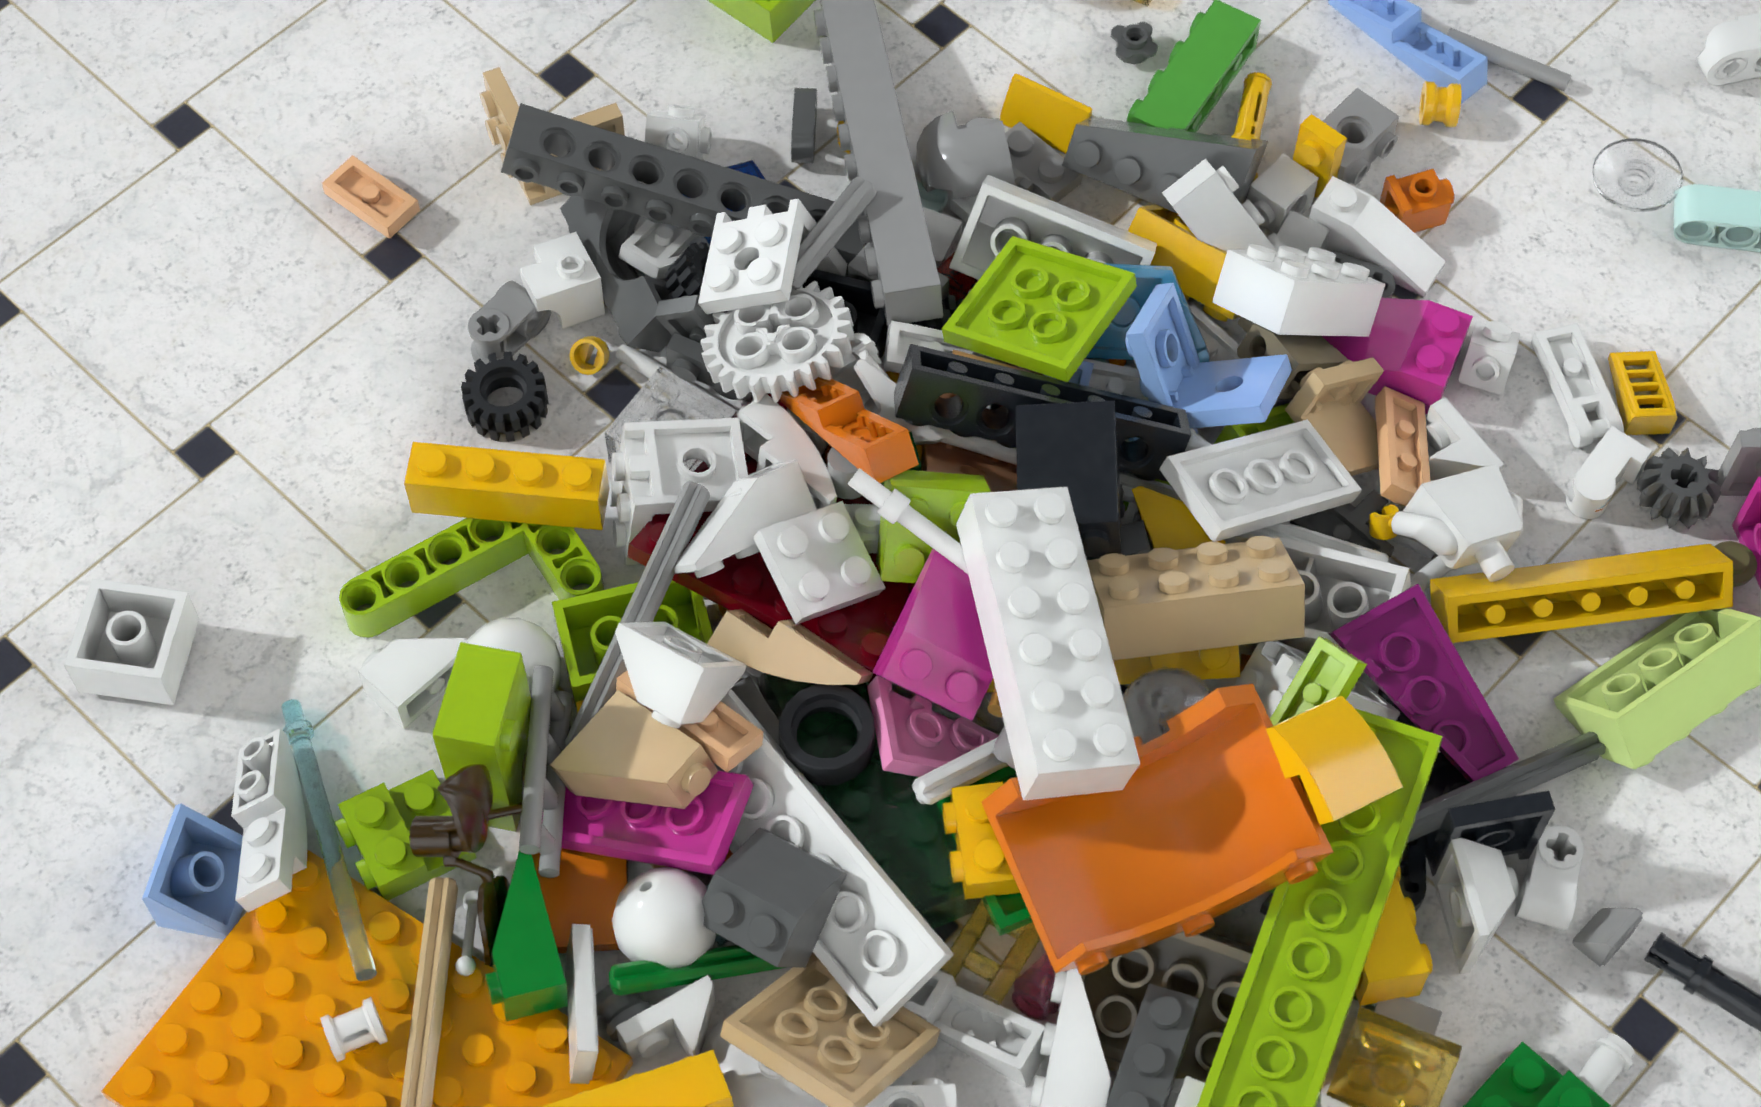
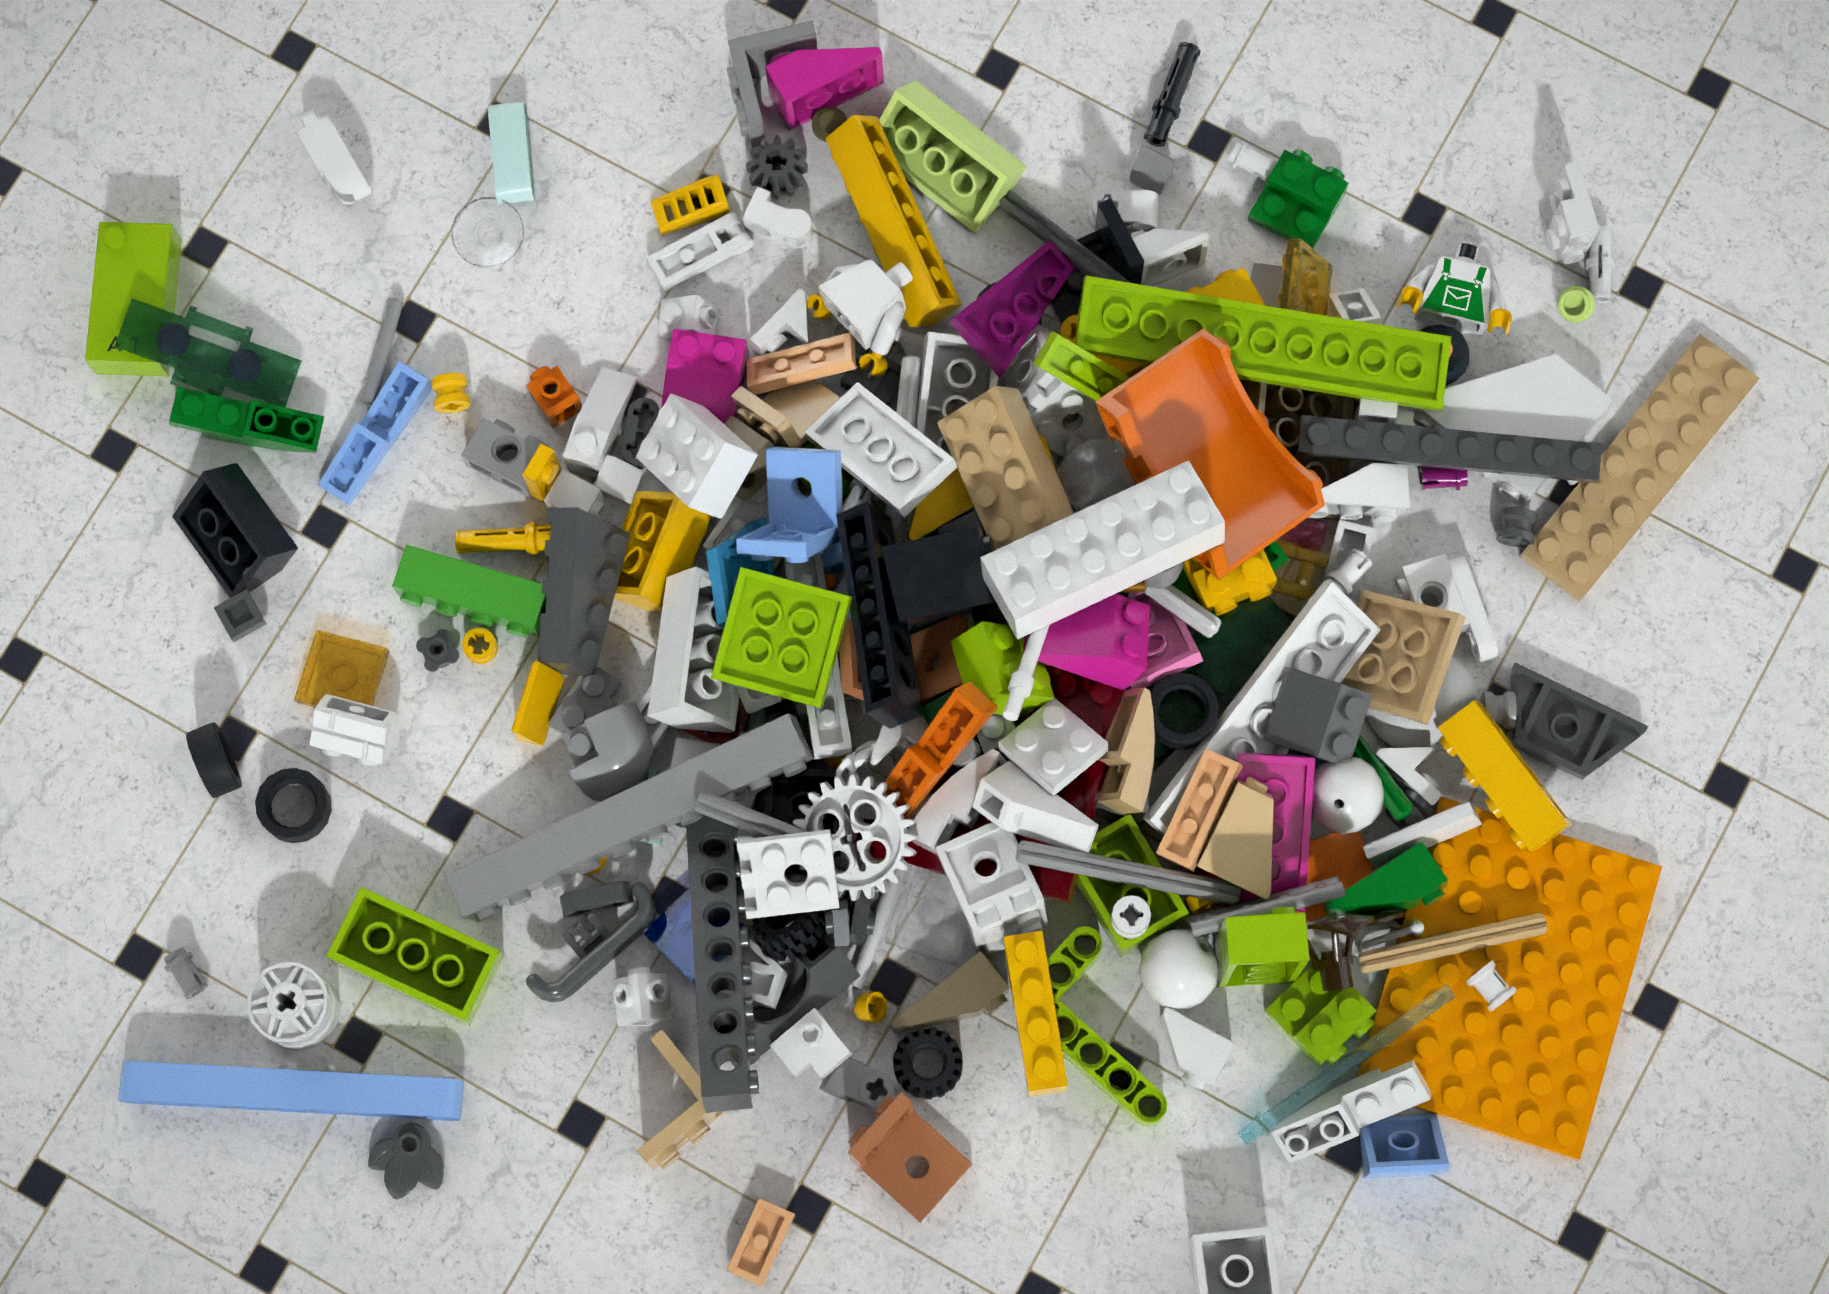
camera: 100 degrees left, 15 degrees up
(426, 336) = (894, 1140): none -> nougat bracket
(565, 421) = (960, 996): none -> dark tan slope
(590, 621) = (1130, 924): none -> white wheel
(675, 671) = (1180, 817): white slope -> none
(751, 112) = (596, 948): none -> dark grey piece
(955, 997) = (1348, 572): none -> white pin
(1122, 73) = (490, 640): none -> yellow bush
(1213, 212) = (637, 529): white slope -> none
(1335, 758) = (1136, 337): yellow slope -> none

